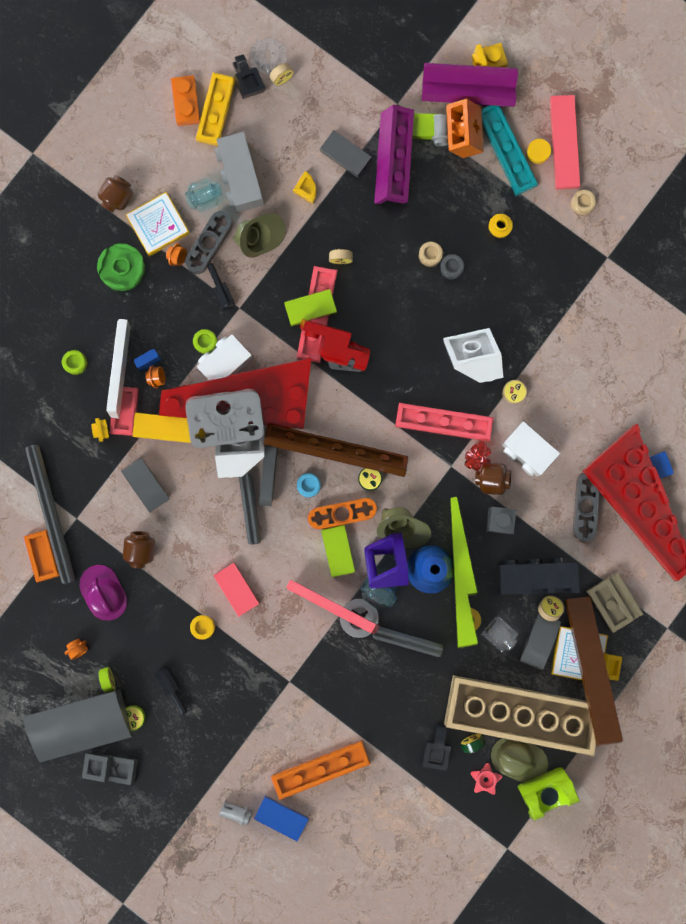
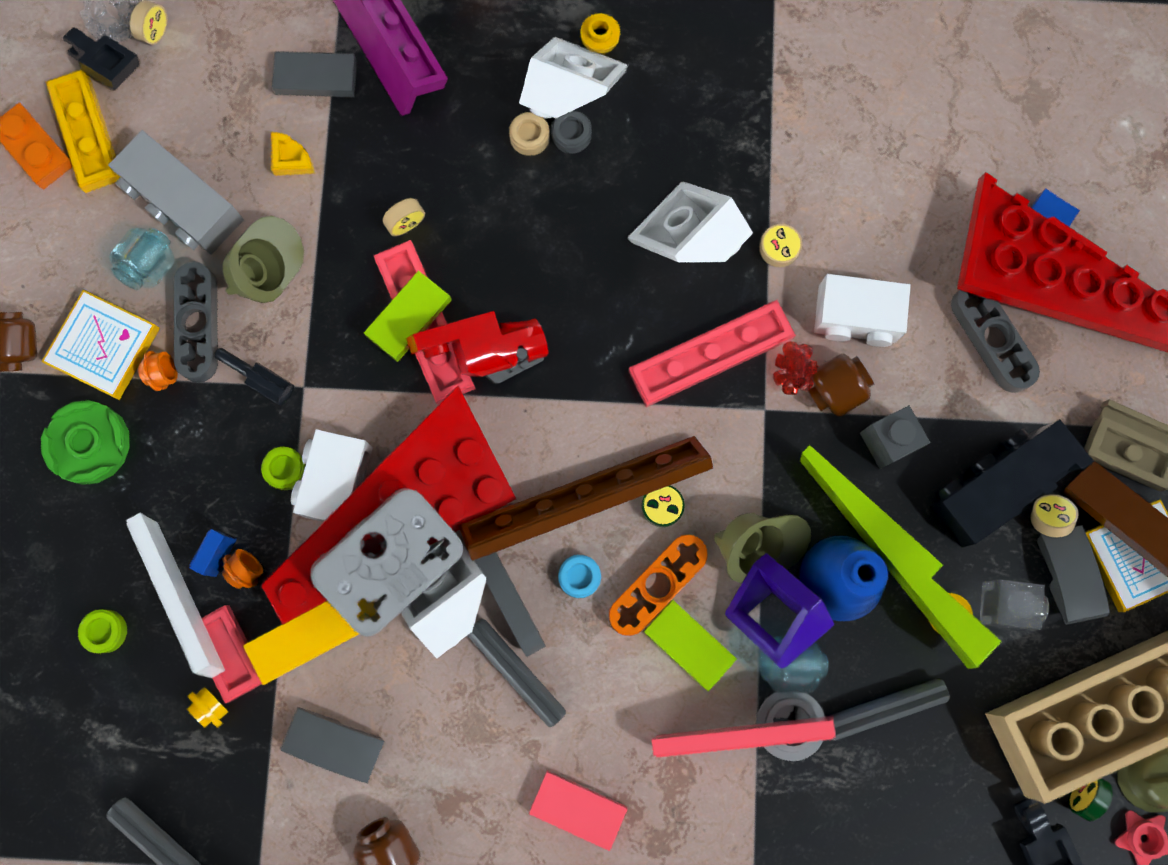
camera: 35 degrees left, 5 degrees down
(468, 239) = (566, 78): none -> white slope

